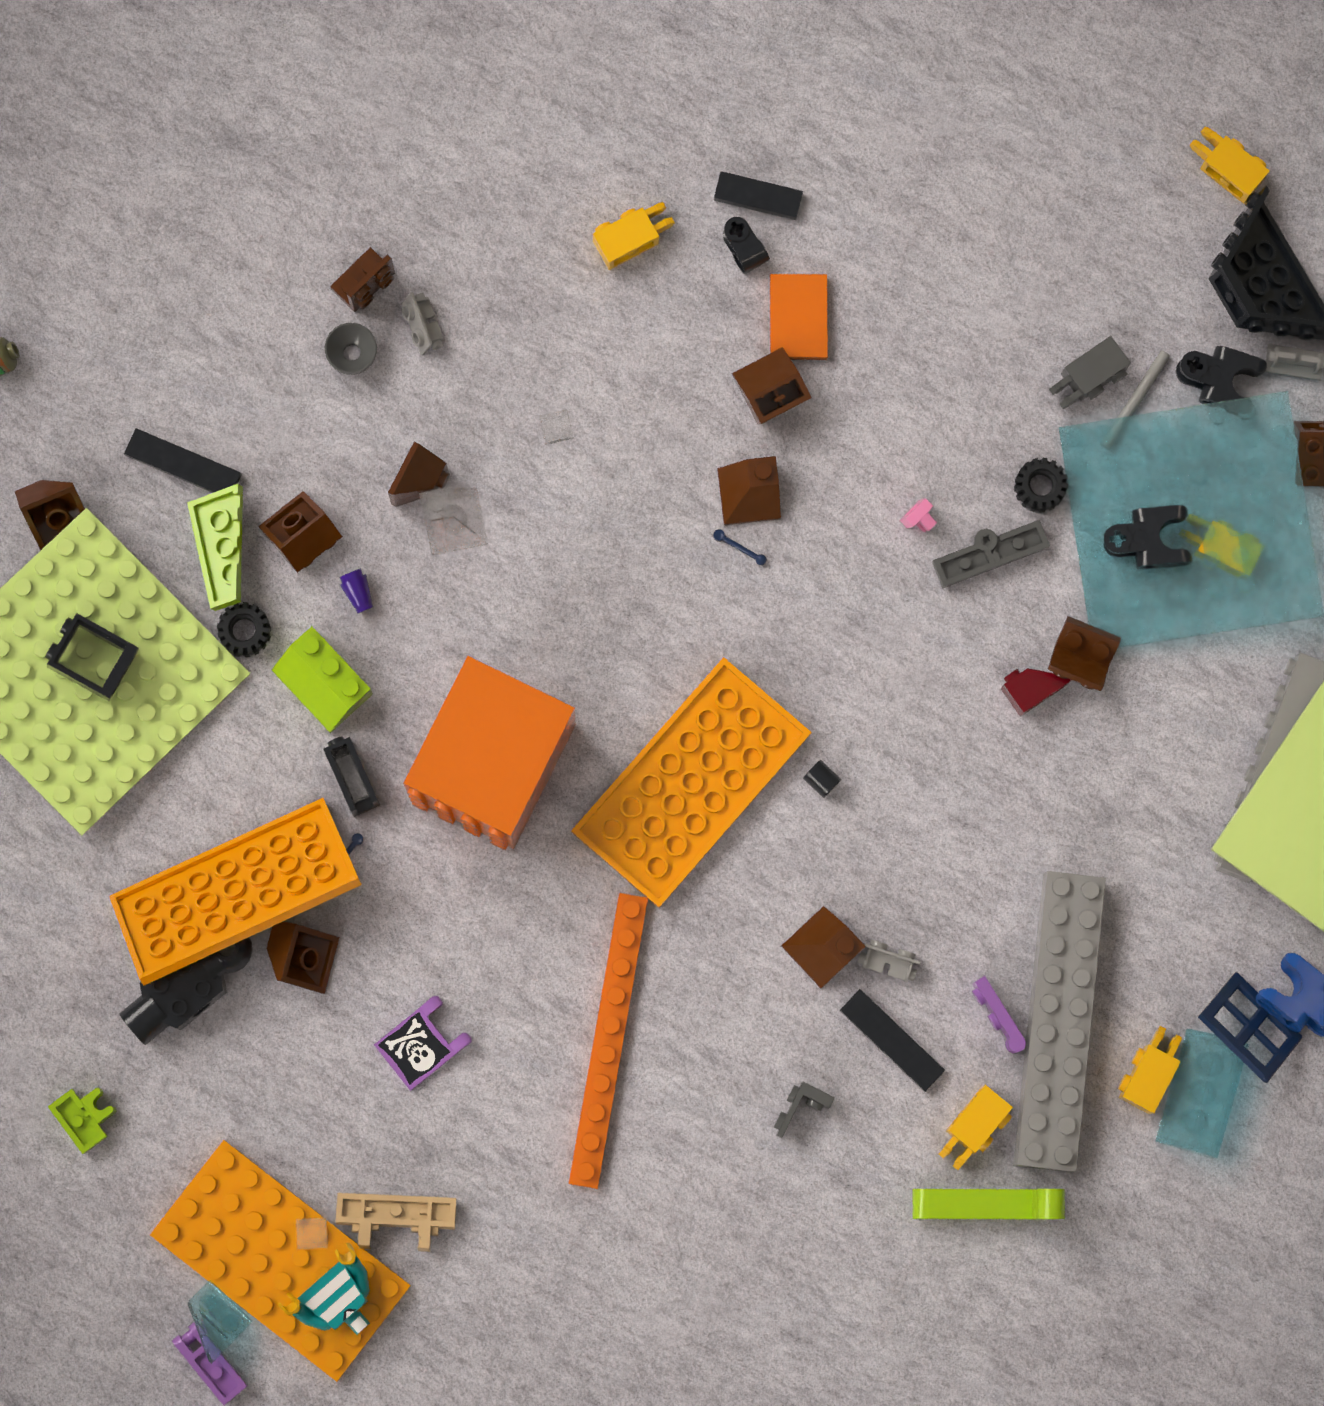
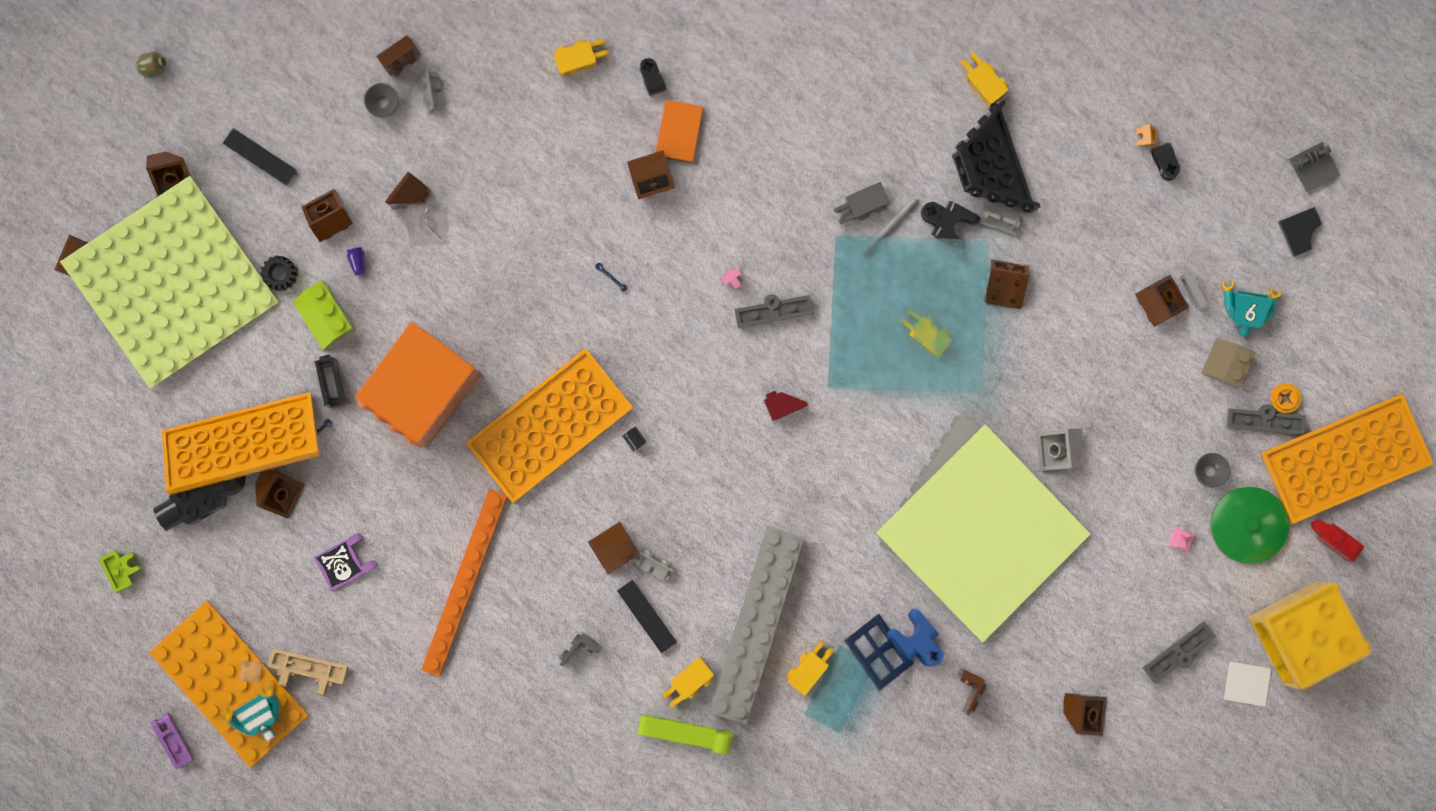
camera: 20 degrees right, 5 degrees up
(68, 630) = (162, 255): black window -> none
(216, 1320) = (181, 714): clear light blue wing -> none
(218, 539) = (273, 209): lime wing -> none
(750, 491) = (624, 241): reddish brown slope -> none
(758, 195) = (668, 45): black tile -> none
(999, 1016) = (718, 614): medium lavender plate -> none
(1045, 468) = (815, 260): black tyre -> none
(1083, 653) = (819, 389): reddish brown bracket -> none
(1144, 539) = (874, 321): black piece -> none

